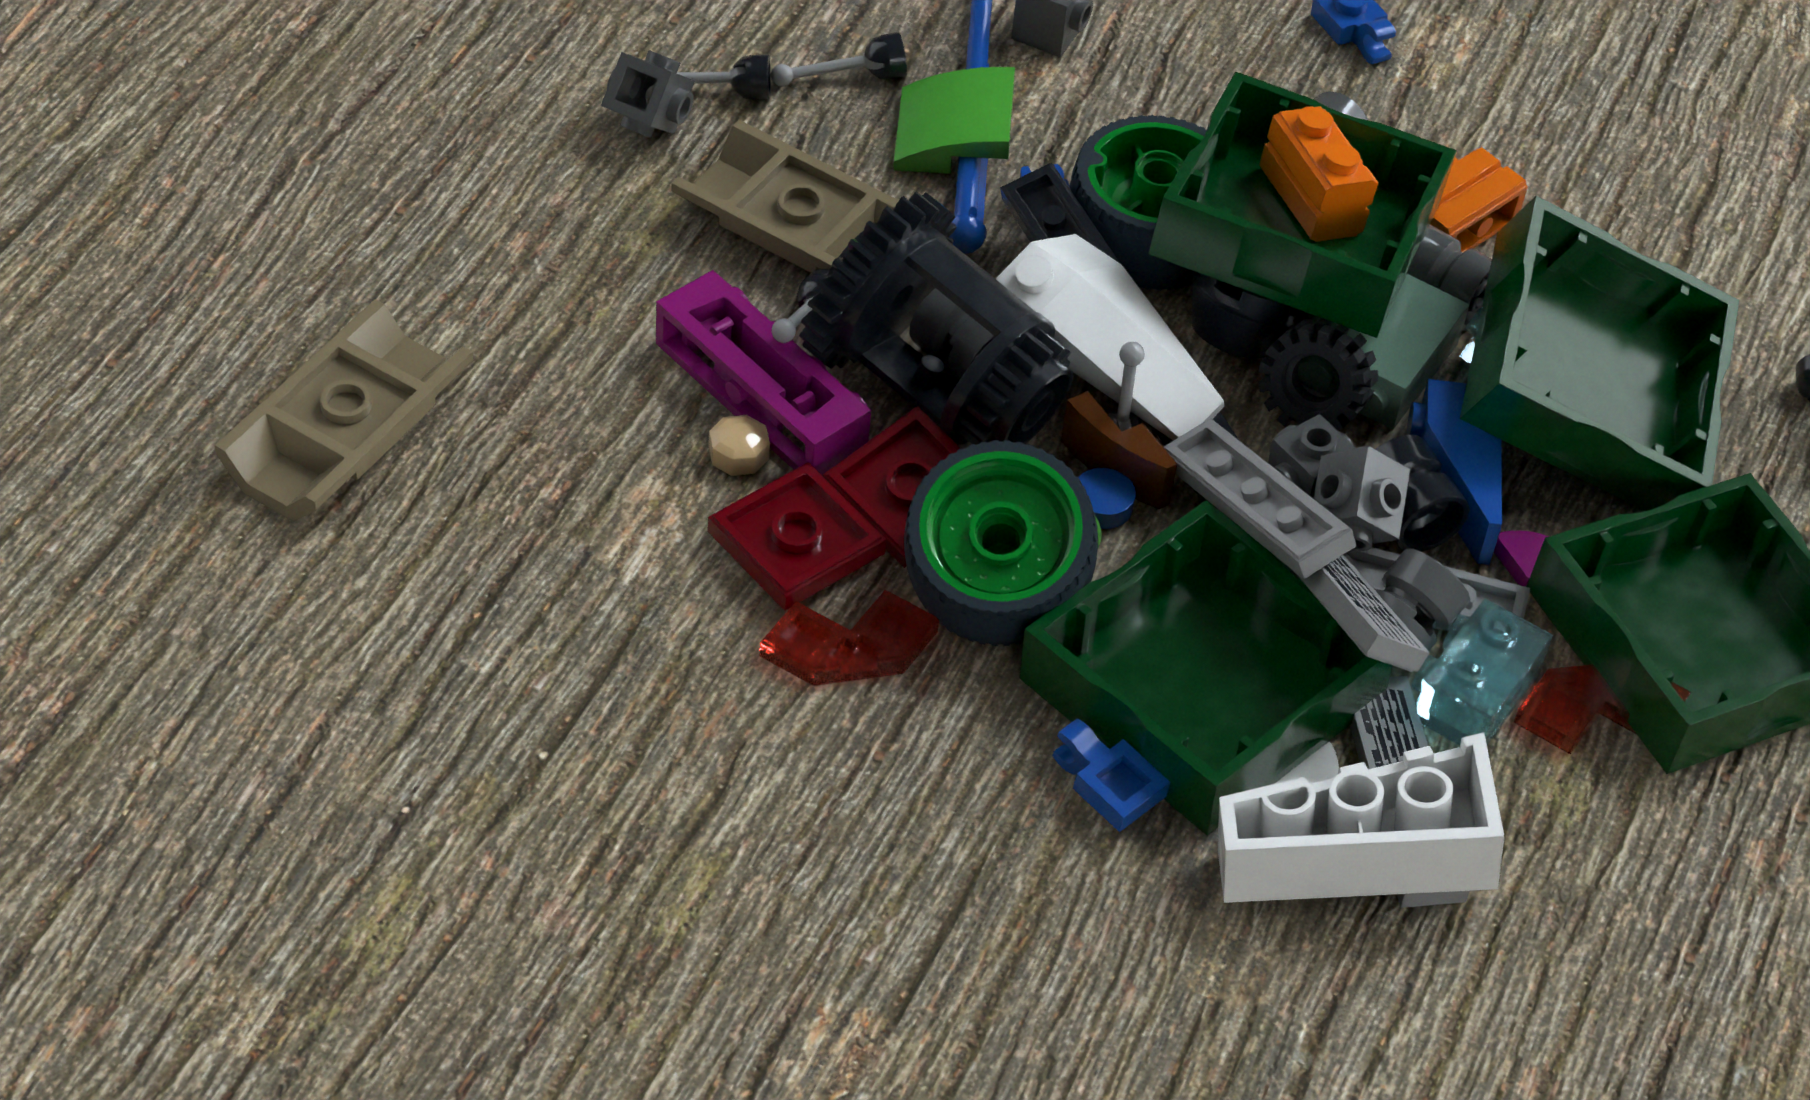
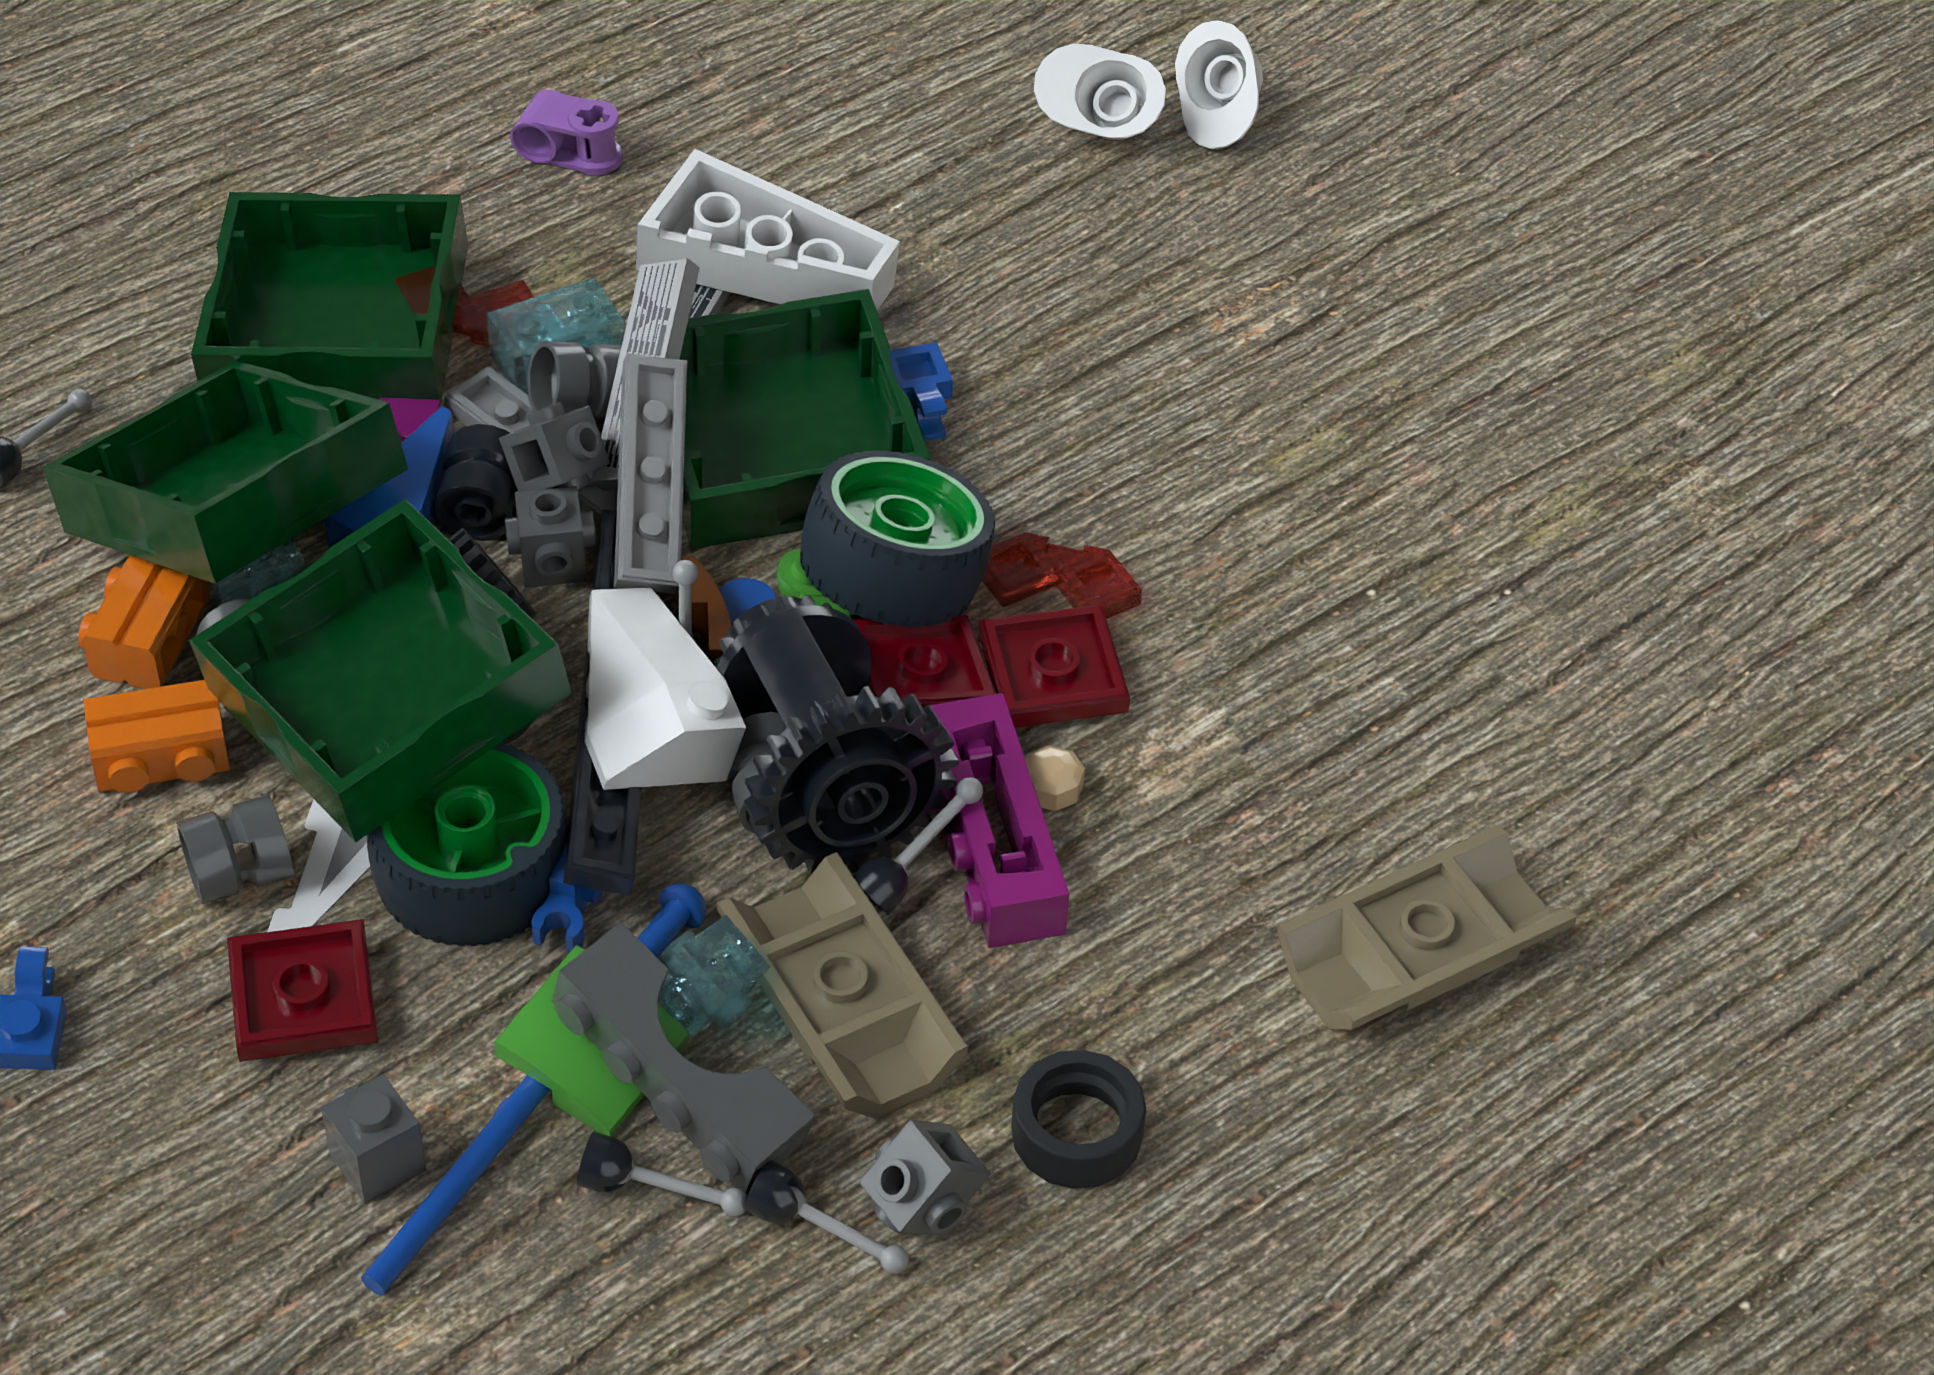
camera: 150 degrees left, 0 degrees up
(566, 218) = (1088, 1075): none -> black tyre
(812, 90) = (729, 1117): none -> dark grey arch
(897, 157) = (710, 976): none -> clear light blue brick
(1176, 80) = (301, 990): none -> dark red plate
(1318, 173) = (346, 677): orange brick -> none
(1702, 932) = (565, 129): none -> medium lavender piece

